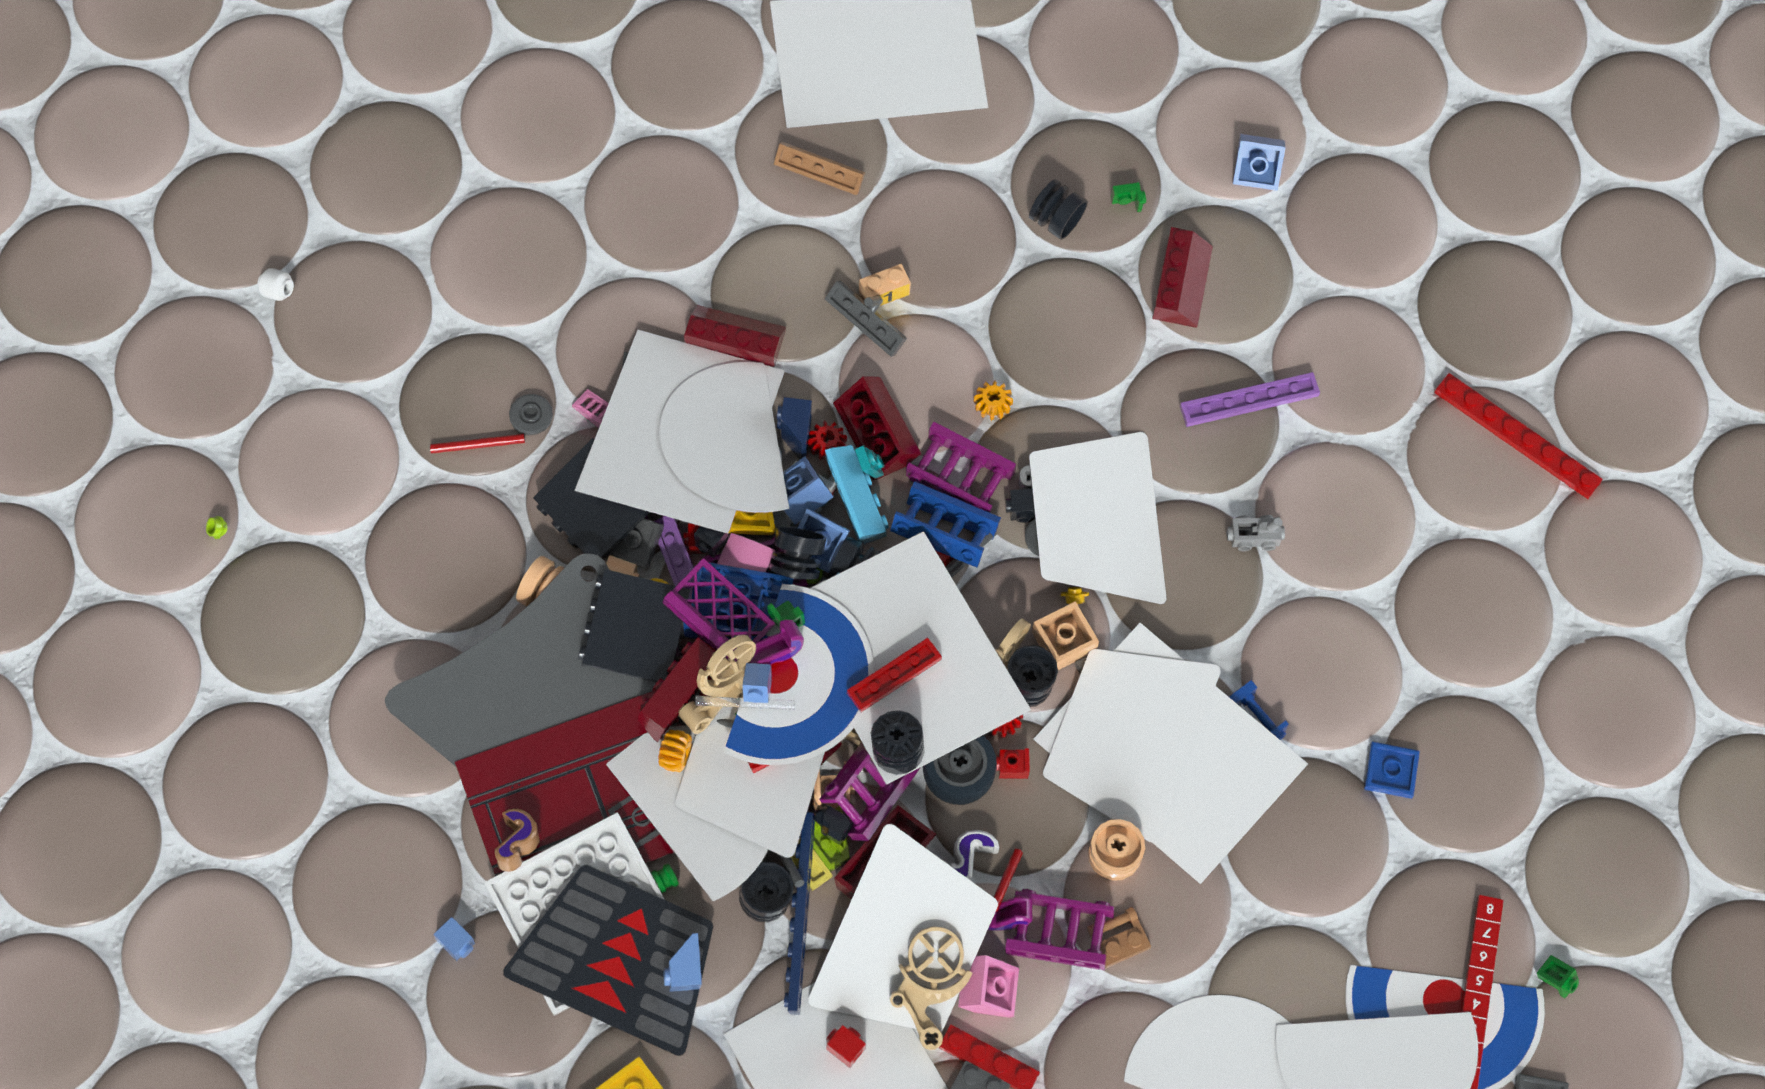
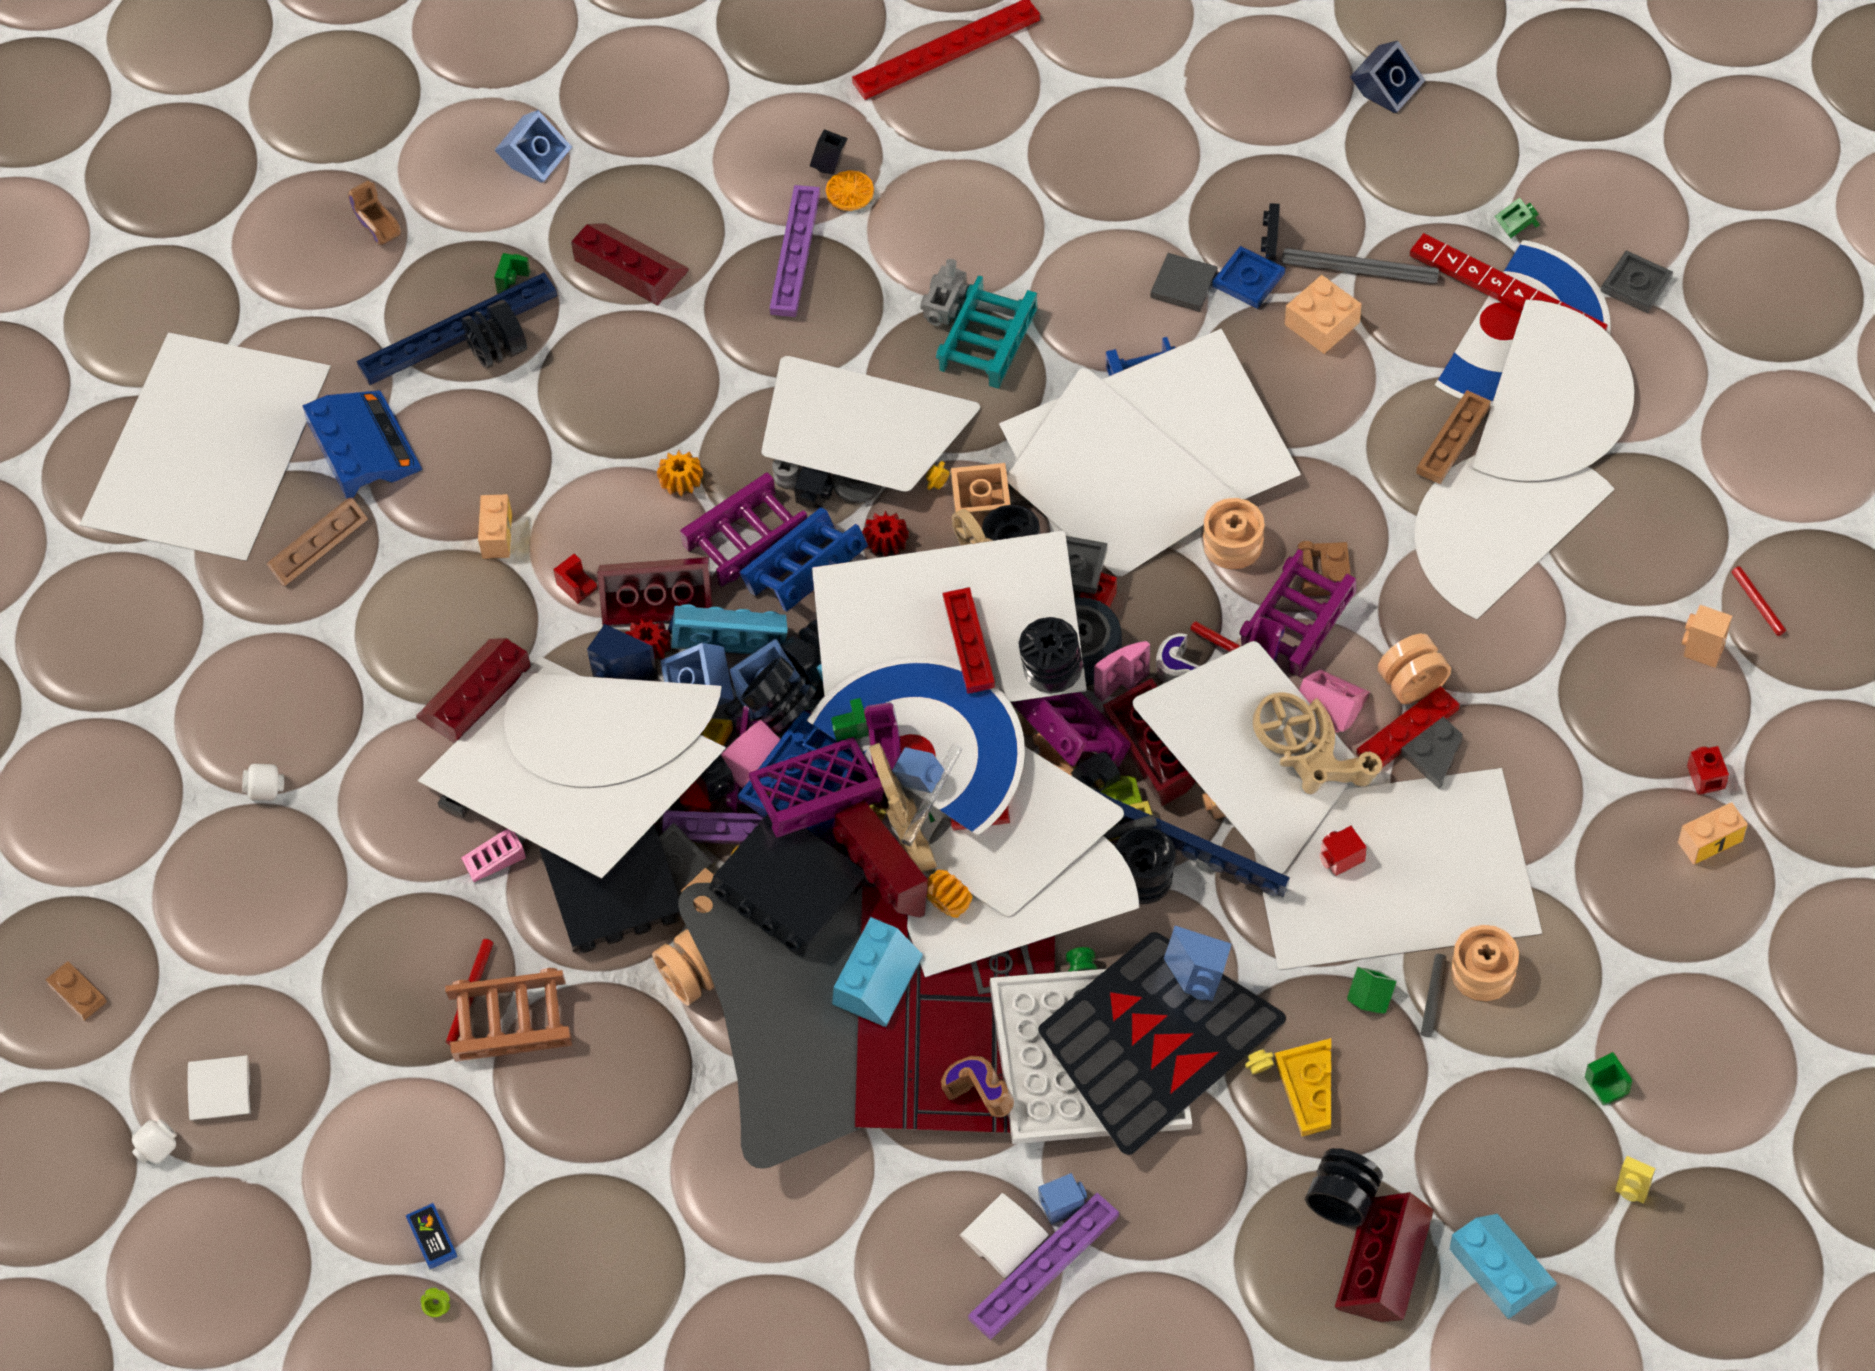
camera: 60 degrees left, 10 degrees down
(270, 502) = (431, 1236): none -> tile
(335, 308) = (218, 1088): none -> white slope
(379, 179) = (76, 990): none -> medium nougat plate
(394, 947) = (1043, 1266): none -> medium lavender plate
(410, 908) = (1004, 1235): none -> white slope
(439, 478) = (525, 1038): none -> nougat fence
(530, 414) = (462, 925): dark grey wheel -> none
(586, 726) = (876, 973): none -> medium azure slope
(594, 224) = (262, 782): none -> white head
(629, 1048) = (1260, 1061): none -> light yellow plate
(862, 363) = (573, 580): none -> red panel
(865, 317) = (521, 556): dark grey plate -> none
(870, 462) = (700, 596): teal plate -> none
(924, 158) = (360, 439): none -> blue piece
(949, 813) = (1123, 667): none -> bright pink slope
(992, 580) = (885, 534): none -> red gear
(1025, 735) = (1086, 563): none -> dark grey plate
(1038, 1043) = (1414, 668): none -> light nougat wheel
(1045, 171) = (450, 330): none -> dark blue plate
(1137, 74) = (372, 213): none -> medium nougat animal
(1235, 602) = (1004, 348): none -> teal fence
(1298, 998) = (1453, 437): none -> medium nougat plate
(1332, 417) = (849, 190): none -> light orange wheel
(1356, 384) = (828, 152): none -> black brick
(1361, 718) = (1183, 282): none -> dark grey tile
(1375, 844) = (1323, 314): none -> light nougat brick
(1446, 859) = (1360, 265): none -> dark grey axle
(1450, 765) = (1271, 220): none -> black wing
(1661, 811) = (1388, 76): none -> dark blue slope

